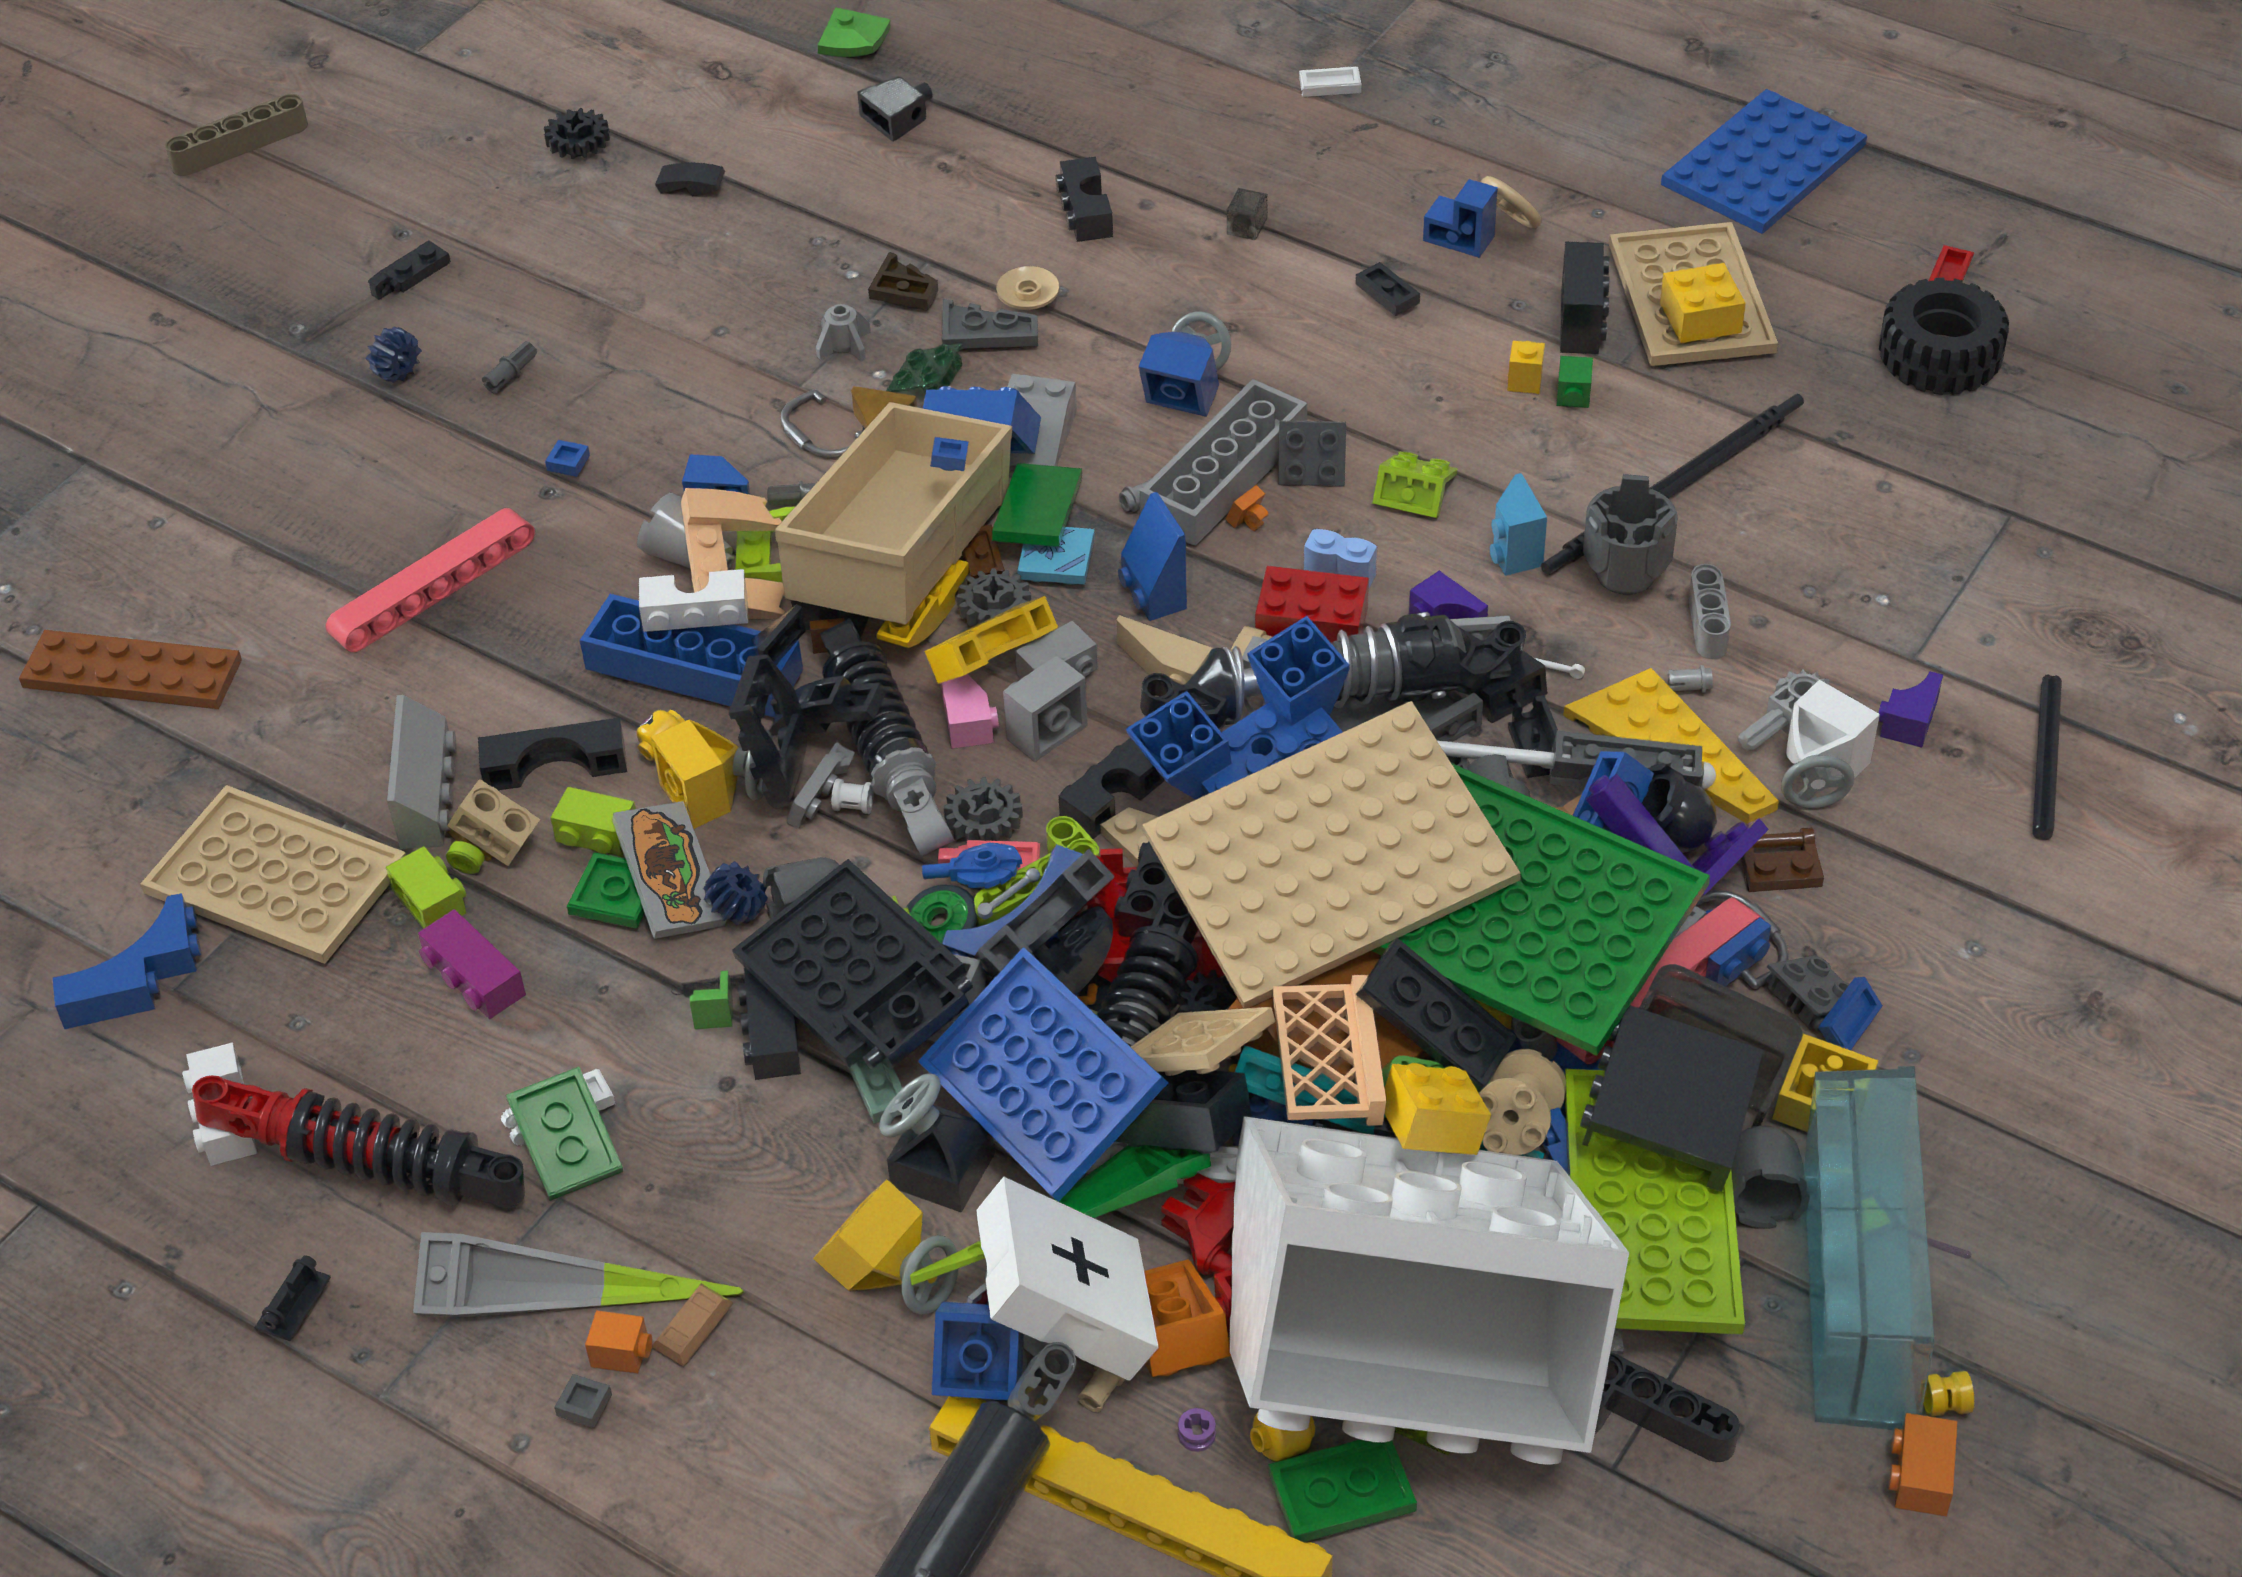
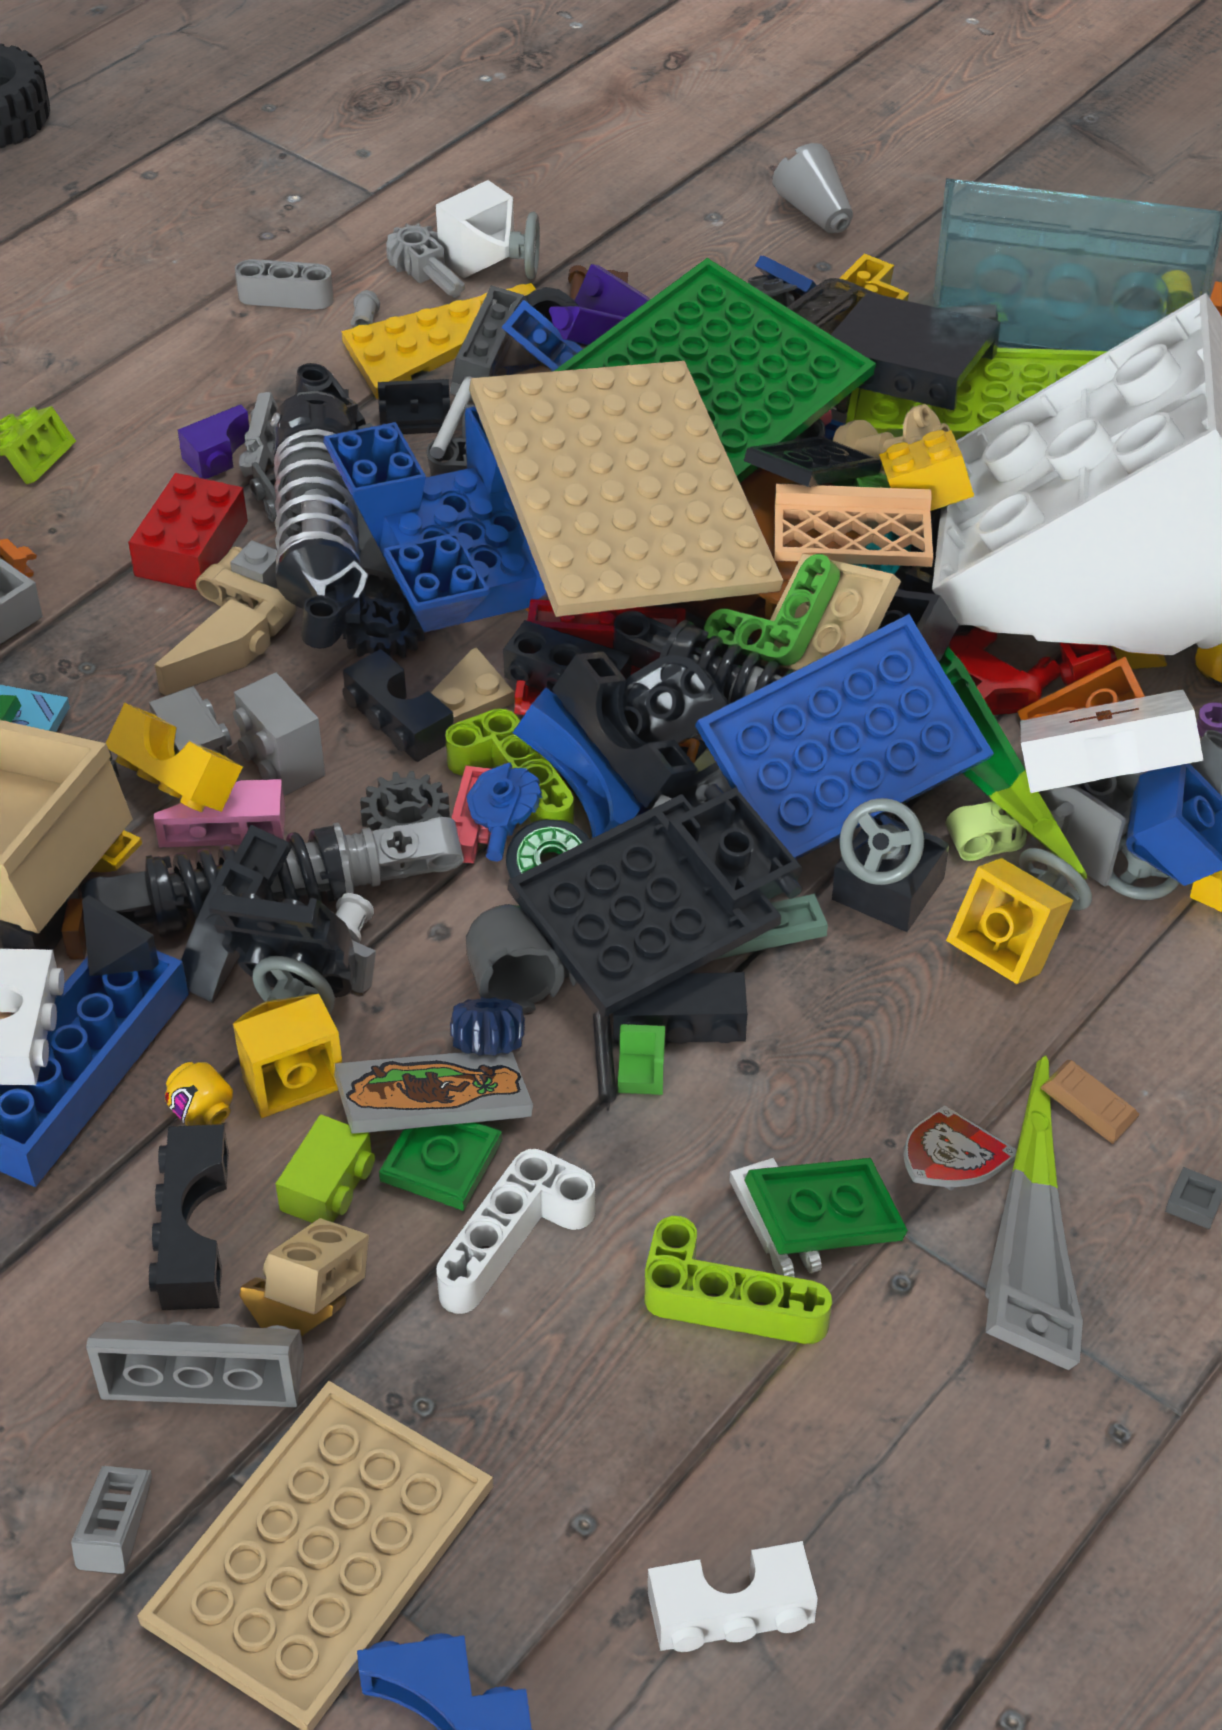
camera: 85 degrees left, 0 degrees up
(292, 760) = (111, 1549): none -> light grey slope
(293, 1300) = (1048, 1504): black hinge -> none
(363, 1144) = (837, 1410): black piece -> none
(426, 887) = (399, 1357): lime brick -> none
(465, 857) = (350, 1314): lime tile -> none
(471, 964) = (537, 1306): magenta brick -> none
(488, 1048) = (795, 1309): none -> lime beam
(571, 942) = (504, 1233): none -> white beam
(618, 1342) = (1121, 1162): orange brick -> none
(623, 1217) = (953, 1151): none -> shield
(985, 909) = (572, 800): light grey hinge -> none
(1155, 561) = (88, 616): blue slope -> none
(1195, 1009) = (785, 627): none -> bright green beam
(1334, 554) = (122, 504): light blue brick -> none
(1518, 529) = (133, 371): dark azure slope -> none
(1629, 535) = (195, 295): dark grey piece -> none
(1694, 469) = (100, 288): black axle -> none
(1910, 711) = (441, 184): dark purple arch -> none
(2024, 1021) = (814, 187): none -> light grey cone
(2047, 757) = (515, 141): black axle -> none

